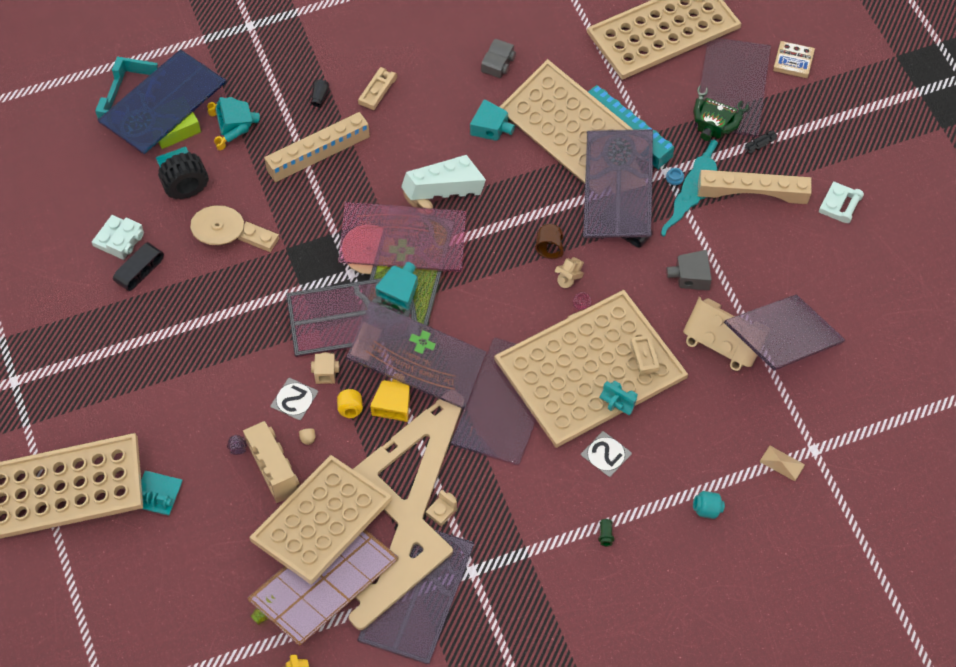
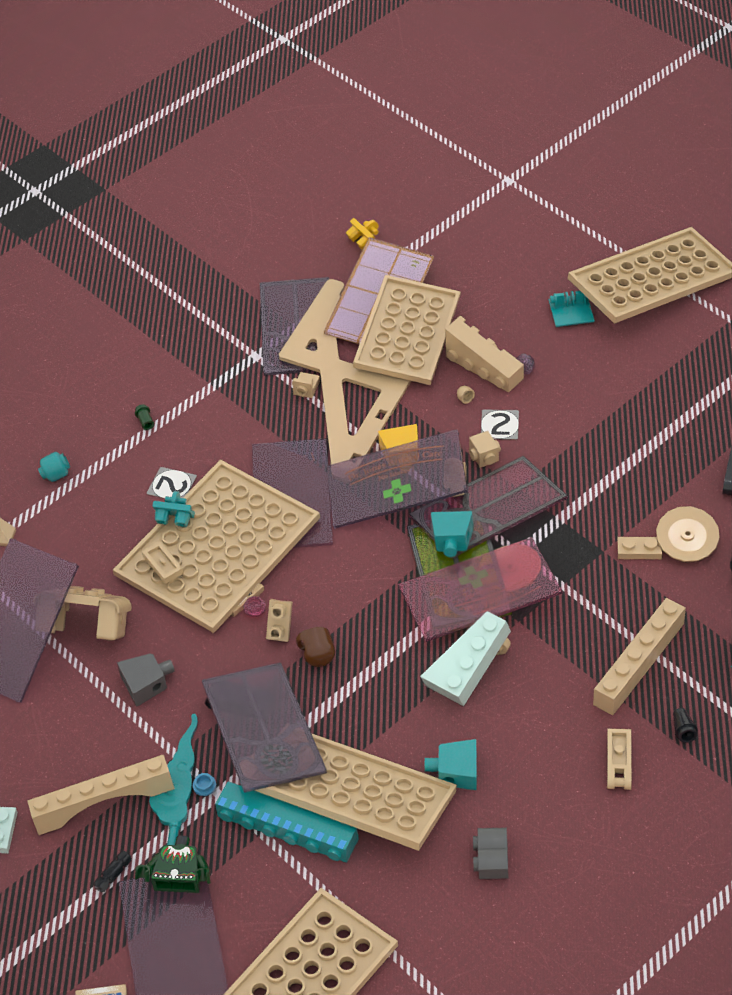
camera: 160 degrees right, 10 degrees down
(349, 403) = (439, 424): yellow head -> none

